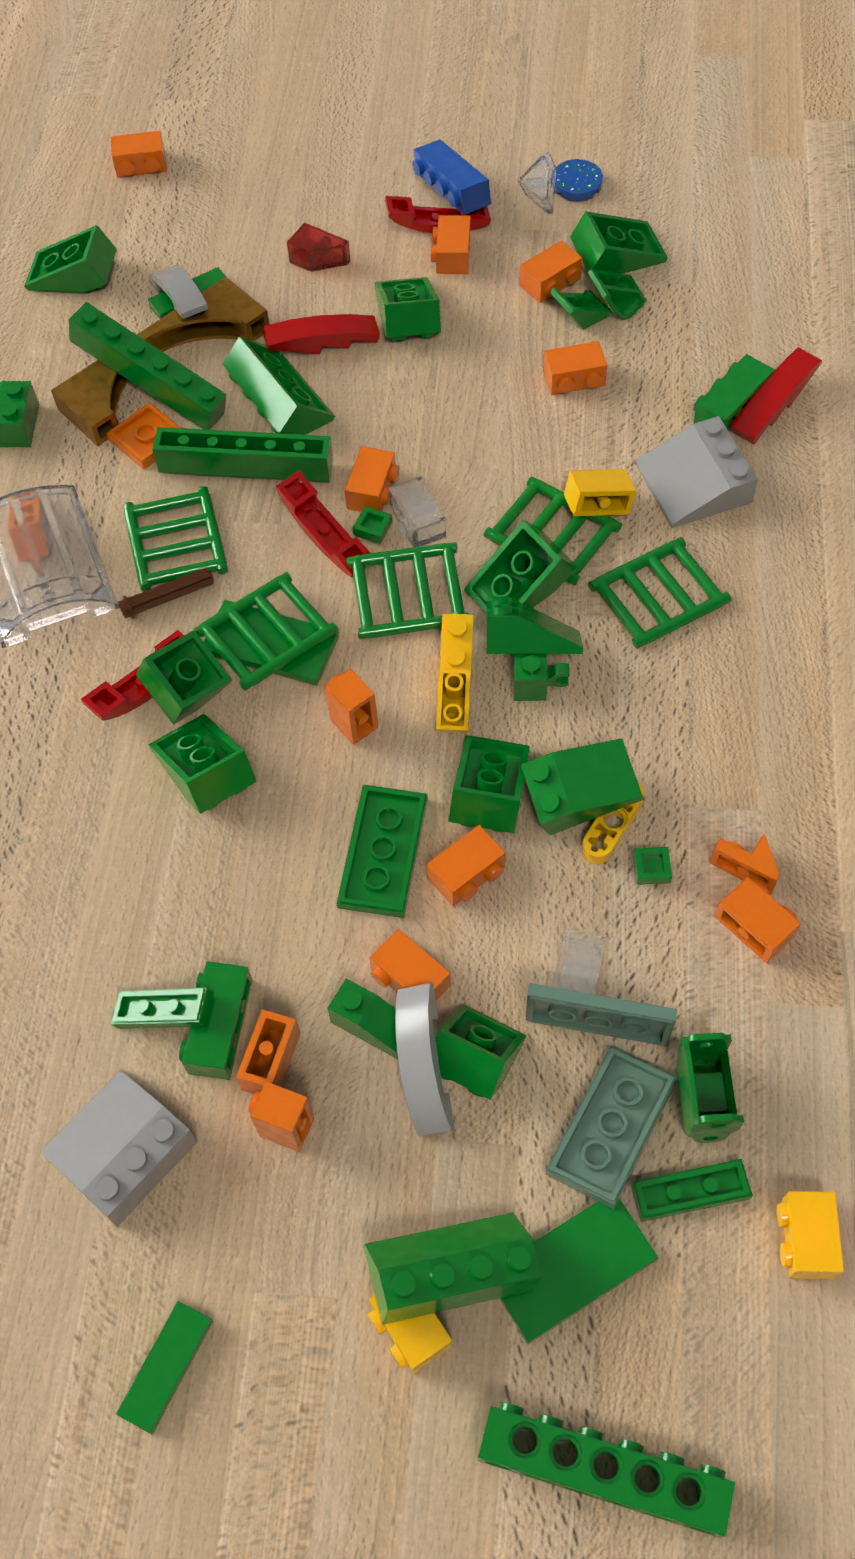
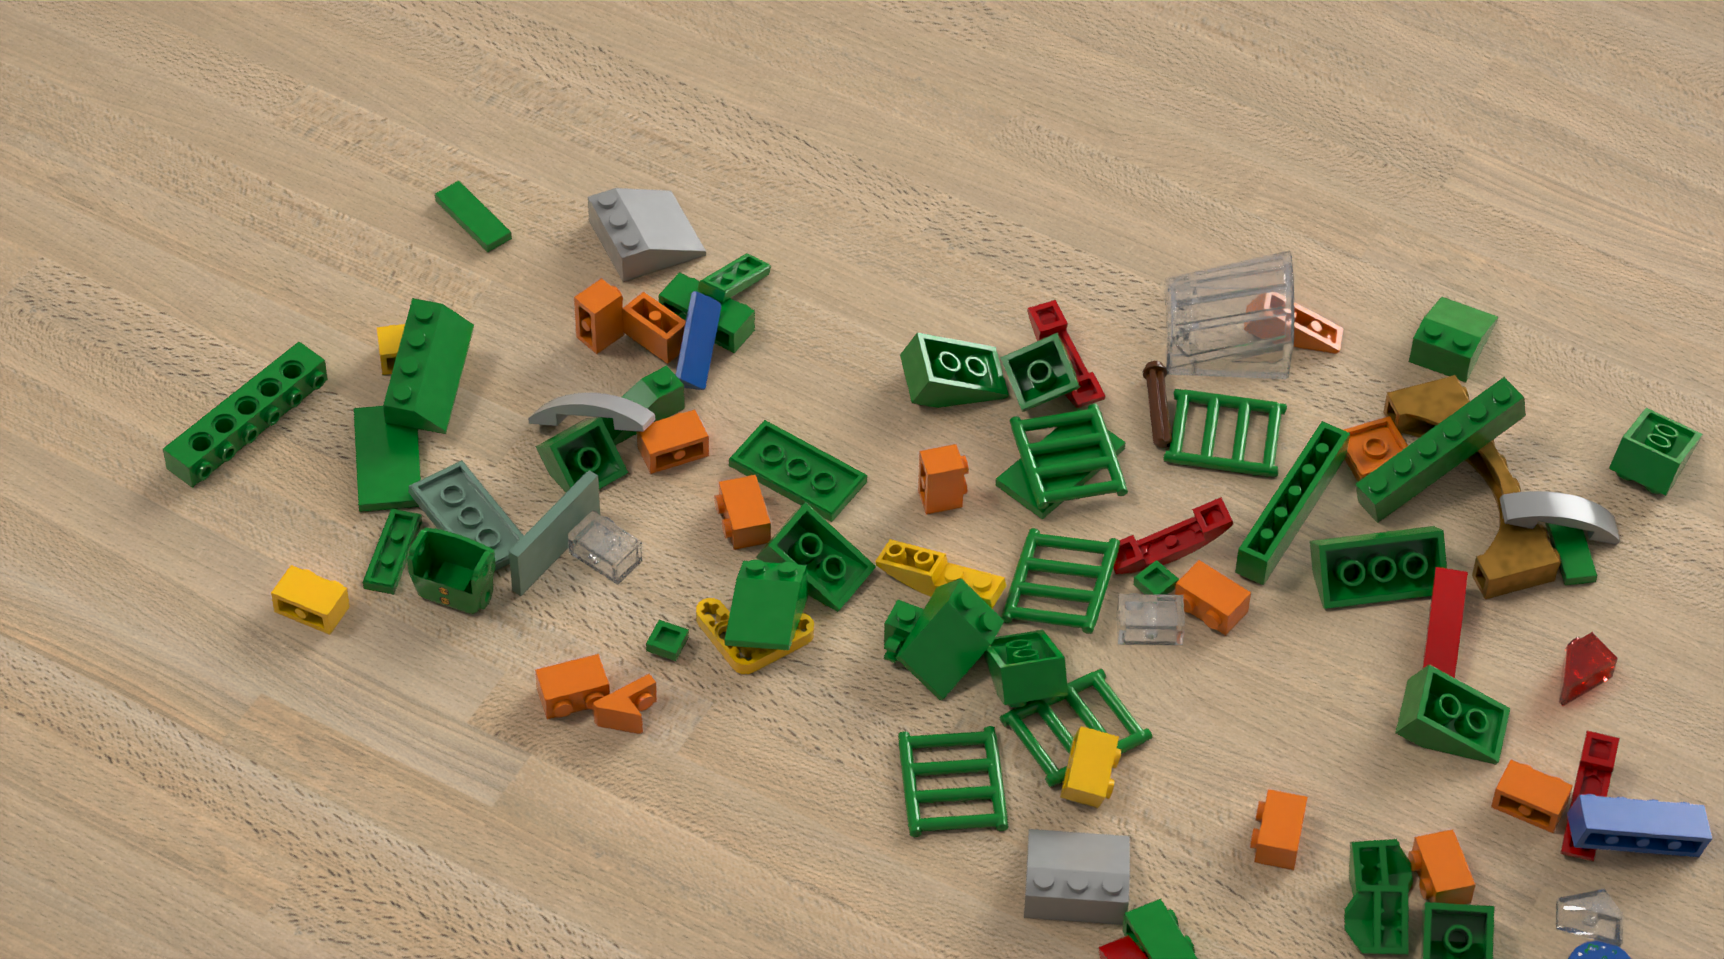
camera: 110 degrees right, 10 degrees down
(273, 999) = (698, 341): none -> blue slope

